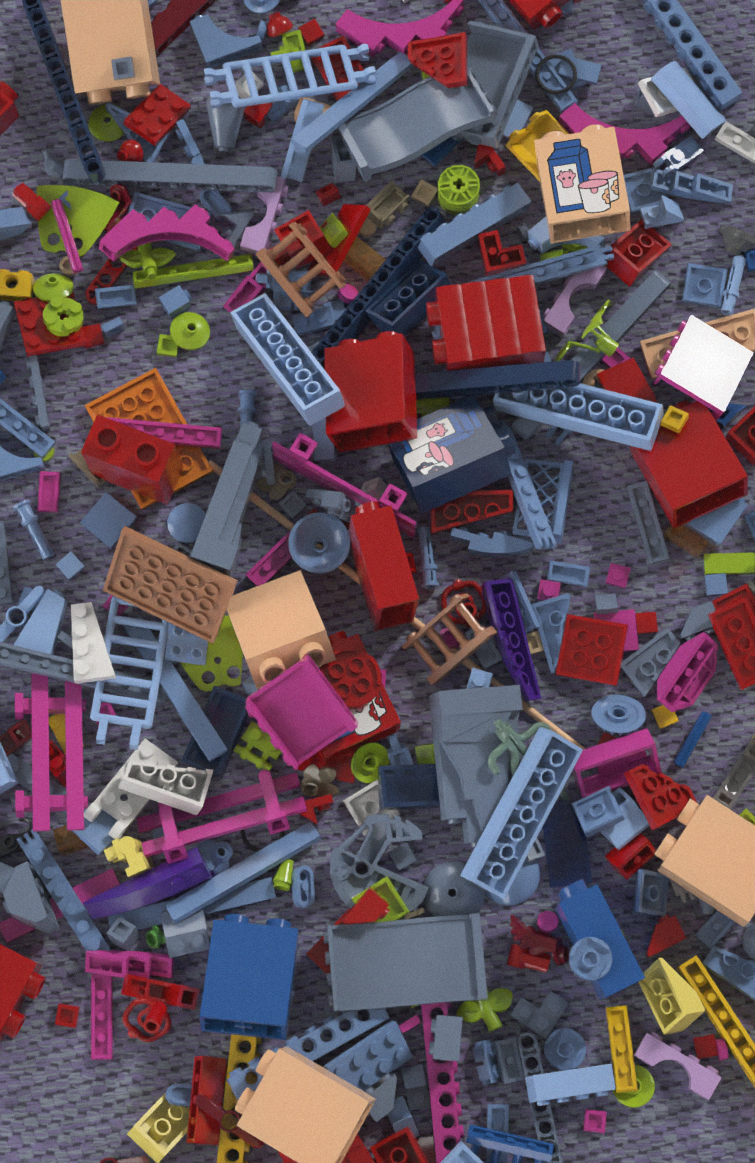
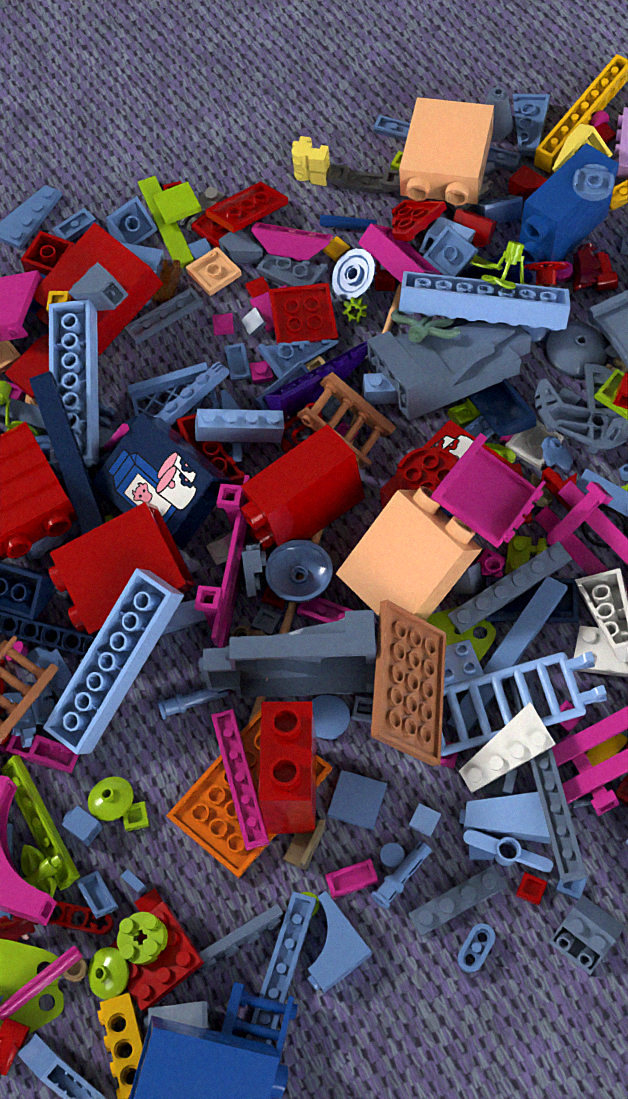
camera: 110 degrees left, 15 degrees down
(53, 529) = (392, 855): none -> medium blue tile
(232, 715) = (509, 587): none -> sand blue plate
(341, 816) = (556, 454): none -> medium blue plate
(480, 541) = (239, 425): none -> light blue brick
(505, 427) = (115, 438): none -> dark pink bar
(529, 829) = (513, 255): none -> lime plant
(541, 897) = (546, 275): none -> red wheel
(580, 702) = (352, 314): none -> lime gear
(660, 454) = (100, 288): none -> sand blue slope
(682, 587) = (213, 271): none -> light nougat plate

